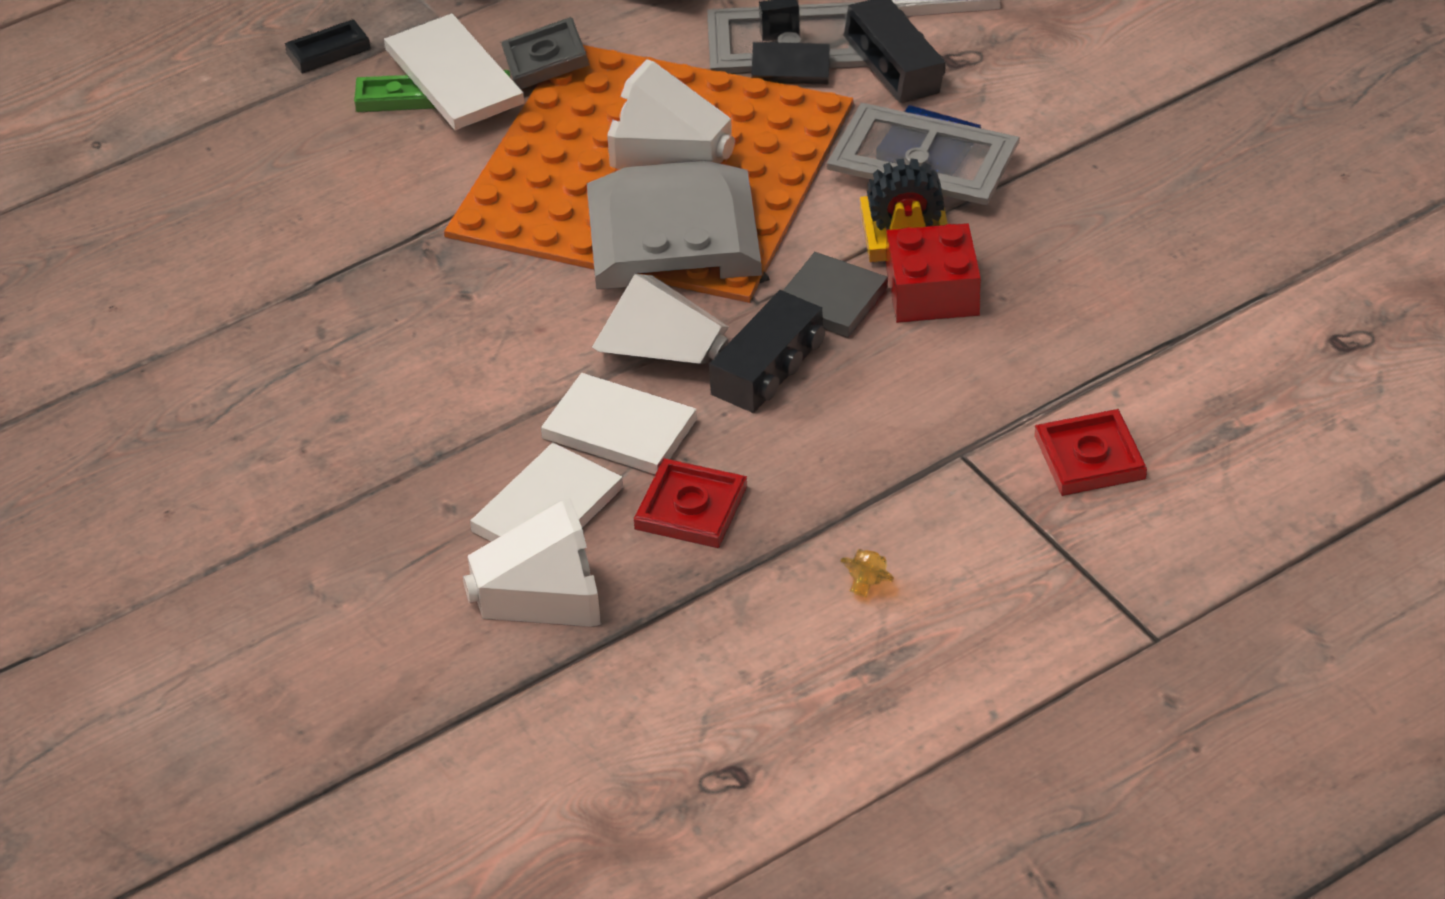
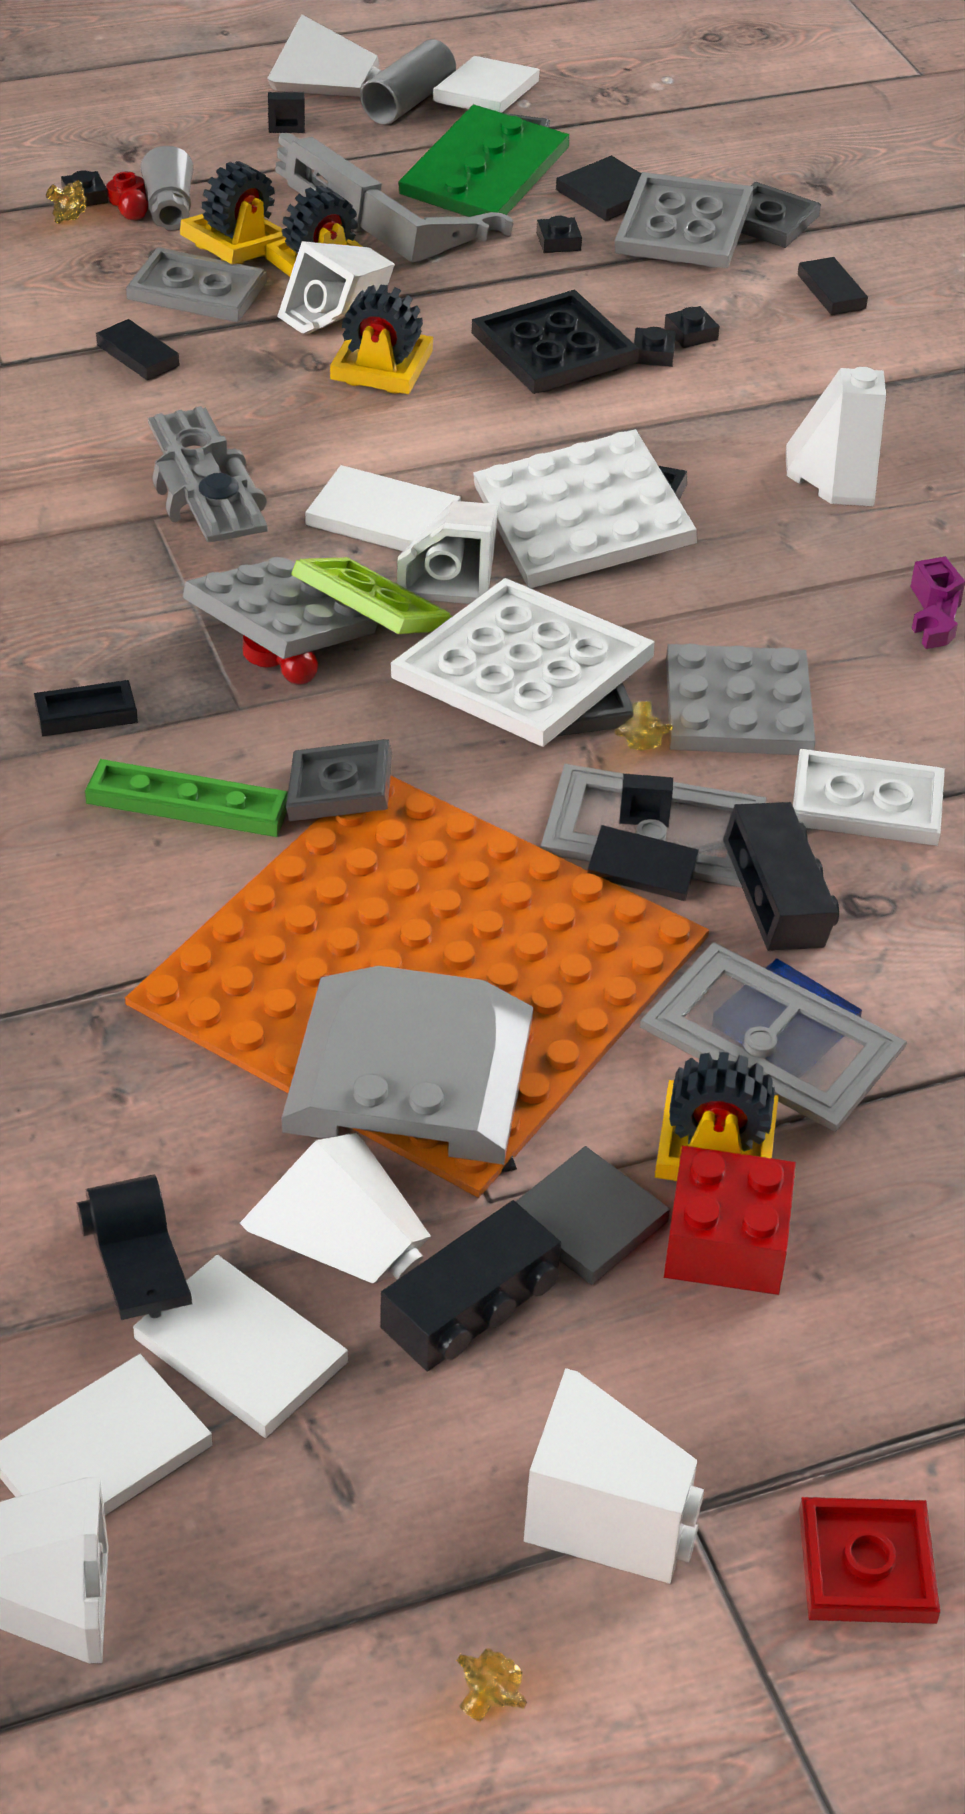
camera: 10 degrees right, 0 degrees up
(454, 71) = (218, 780): white tile -> none
(514, 373) = (135, 1246): none -> black door
(666, 123) = (446, 919): white slope -> none
(690, 503) = (291, 1497): red tile -> none
(910, 439) = (610, 1486): none -> white slope

